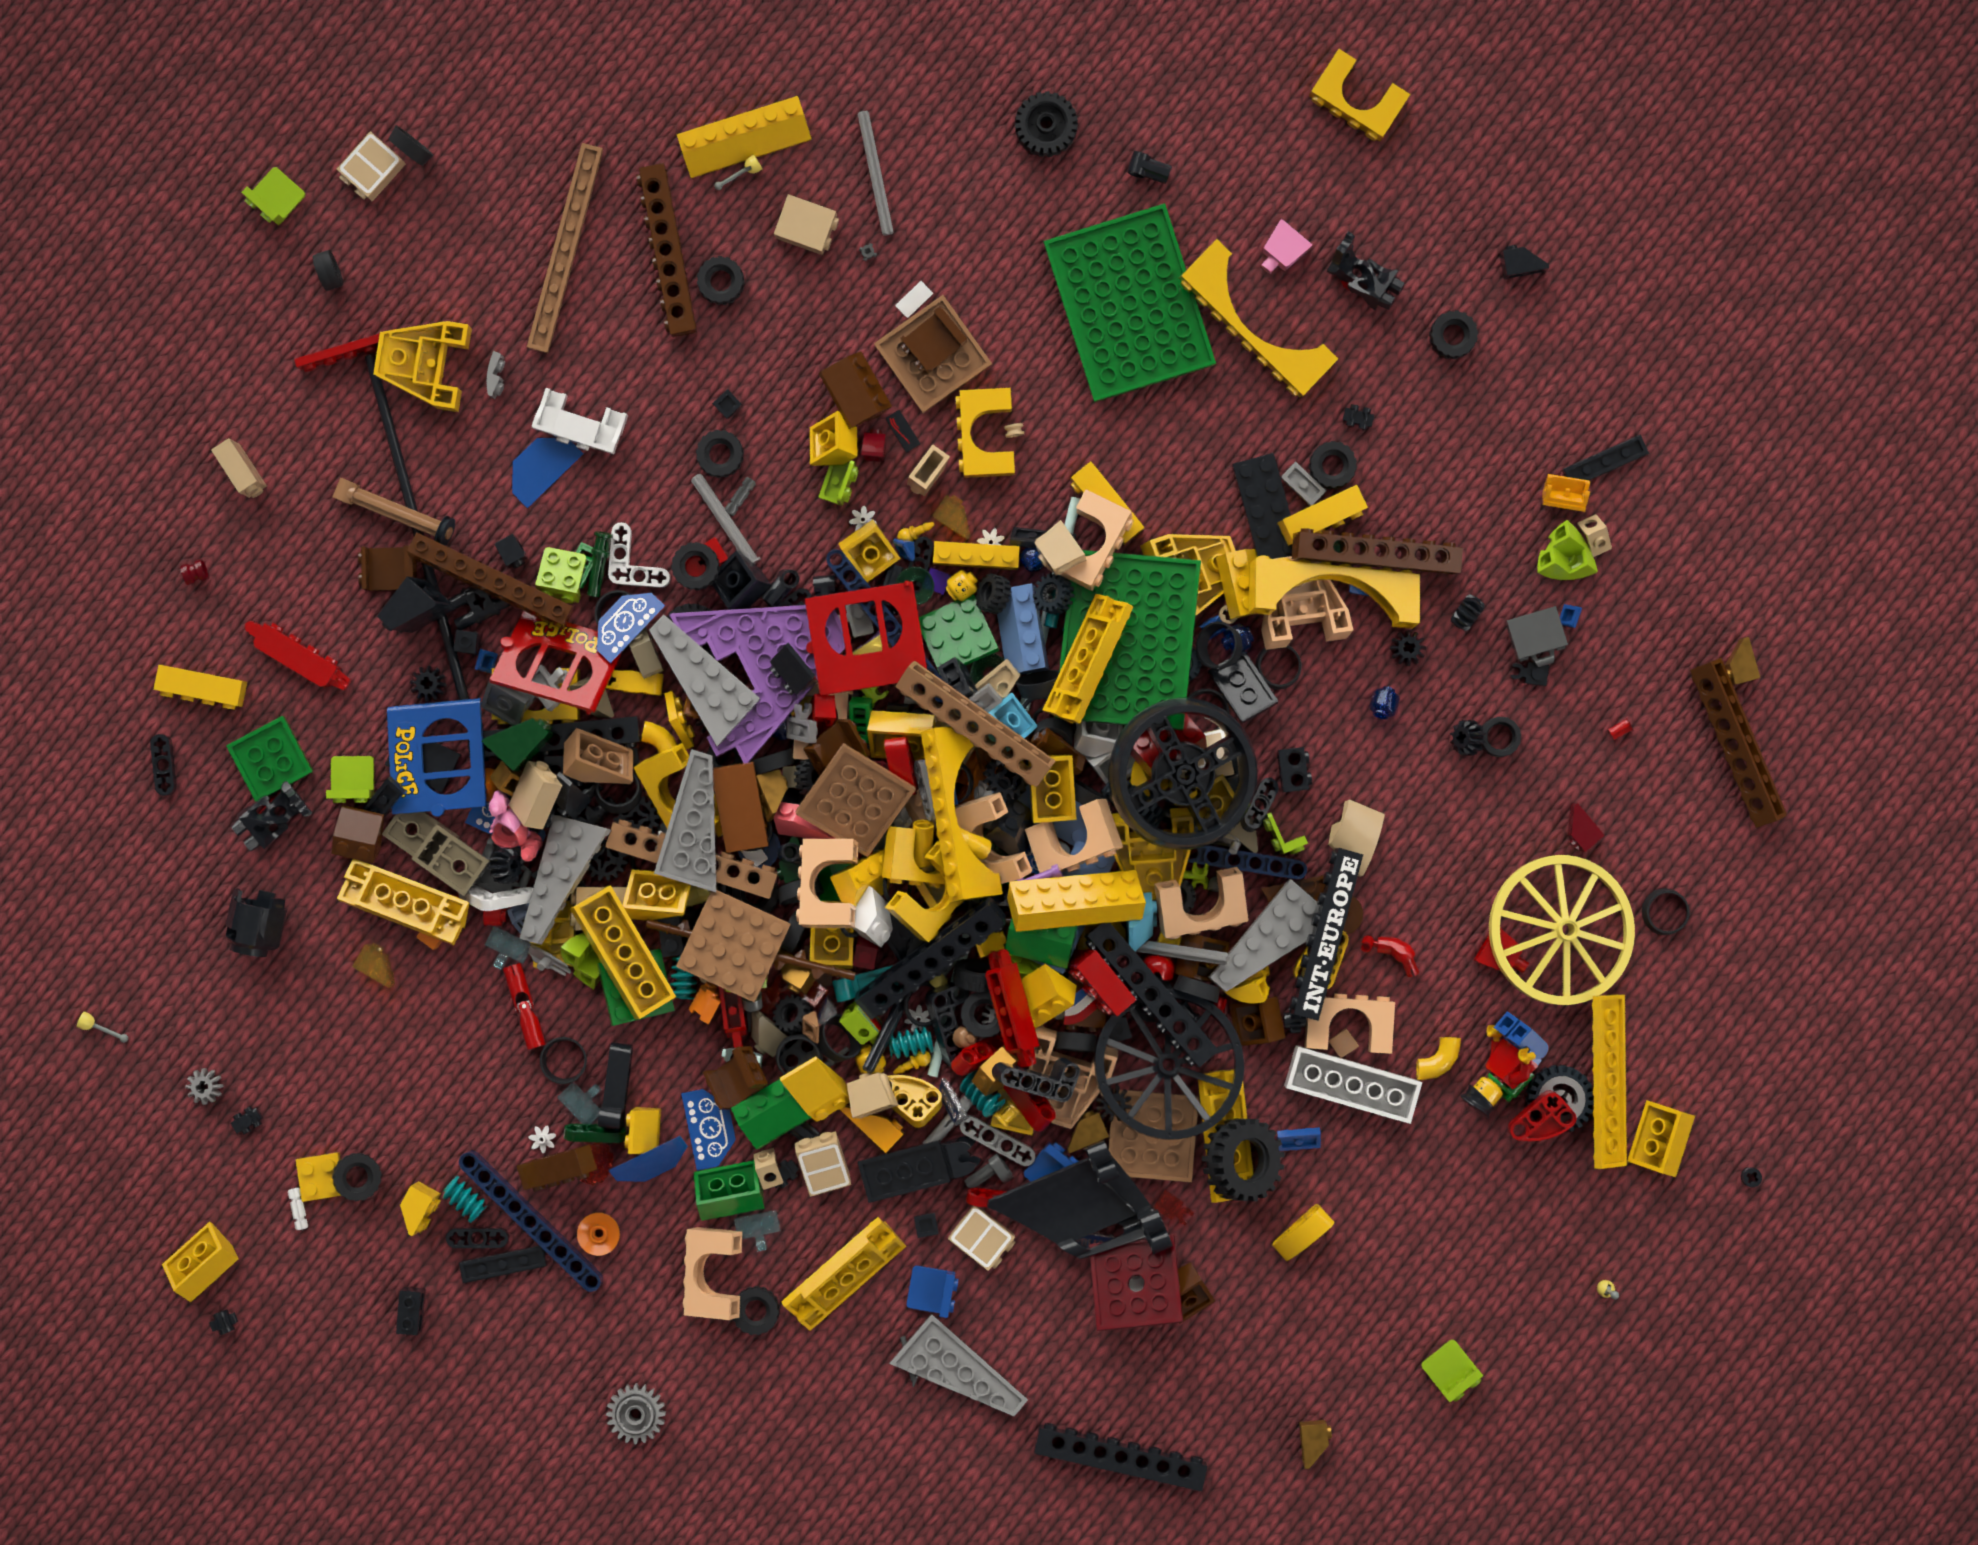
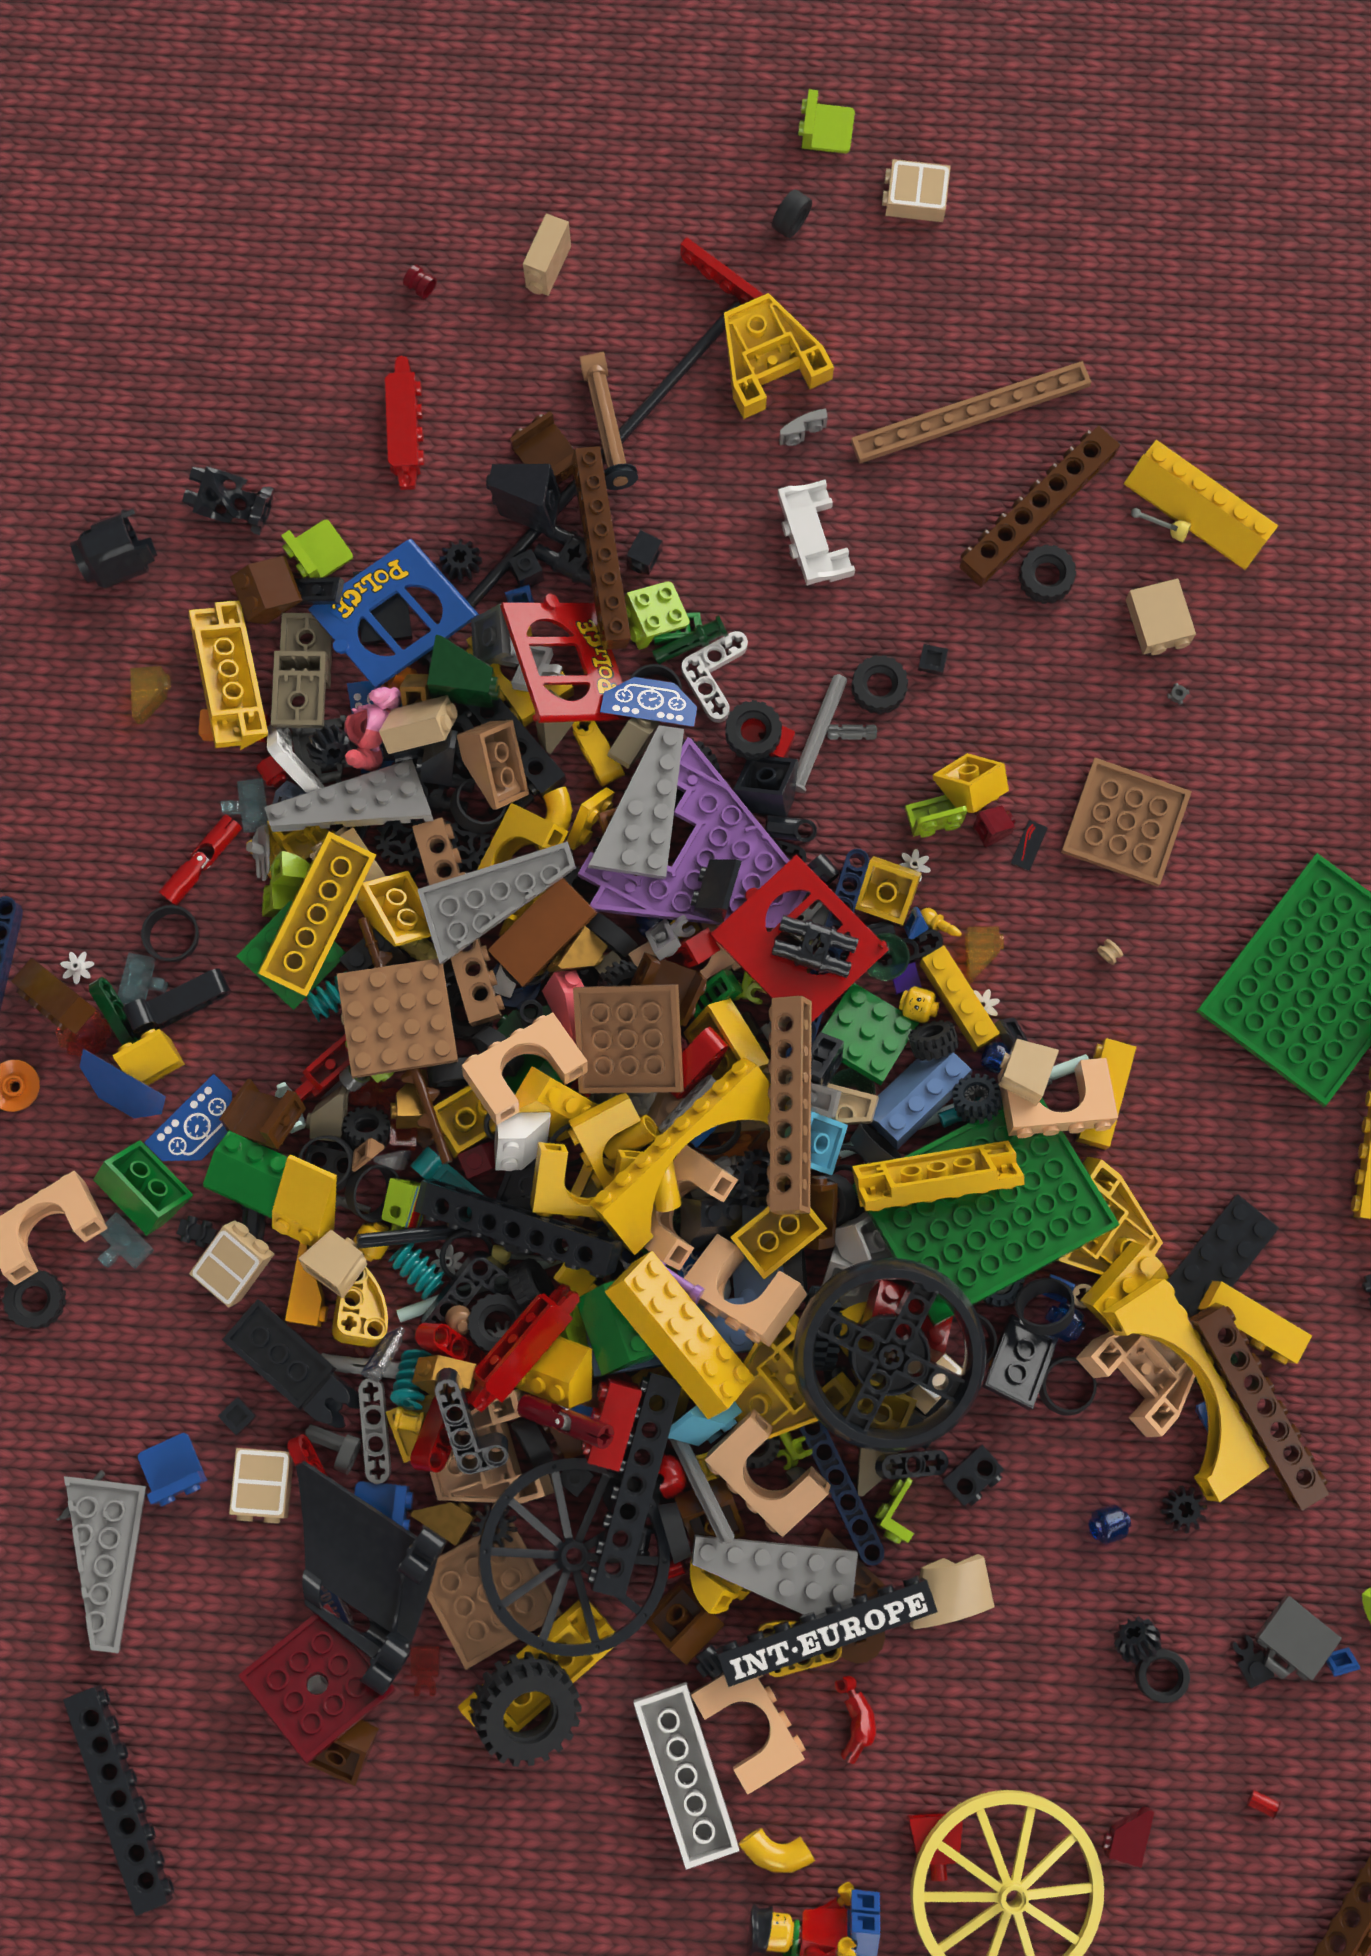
camera: 50 degrees right, 10 degrees down
(155, 760) = (215, 362): black beam -> none
(200, 685) = (313, 355): yellow brick -> none
(269, 758) = (287, 462): green plate -> none
(410, 146) = (963, 208): black tyre -> none
(540, 467) = (746, 529): blue sticker -> none
(706, 1002) = (321, 1031): orange cylinder -> none
(766, 1163) = (194, 1205): tan bracket -> none
(843, 1273) = (130, 1364): yellow slope -> none
(855, 390) = (1036, 769): reddish brown slope -> none
(875, 173) = (1259, 649): light grey axle -> none
(877, 619) = (826, 937): none -> black pin
(914, 299) = (1165, 769): white sticker -> none
(915, 1061) = (402, 1288): yellow bar -> none
(928, 470) = (1008, 892): tan torso -> none
(933, 341) = (1140, 812): reddish brown panel -> none
(972, 406) = (1104, 894): yellow arch -> none
(1080, 1012) = (566, 1421): none -> dark red piece
(1229, 841) = (851, 1457): light grey piece -> none
(1299, 1139) = (588, 1756): blue plate -> none
(1303, 484) = (1270, 1280): light grey plate -> none
(1303, 1232) = (490, 1832): yellow beam -> none
(1340, 450) = (1330, 1289): black tyre -> none
(1343, 1043) = (722, 1733): medium nougat slope -> none
(1467, 612) = (1266, 1547): black gear -> none

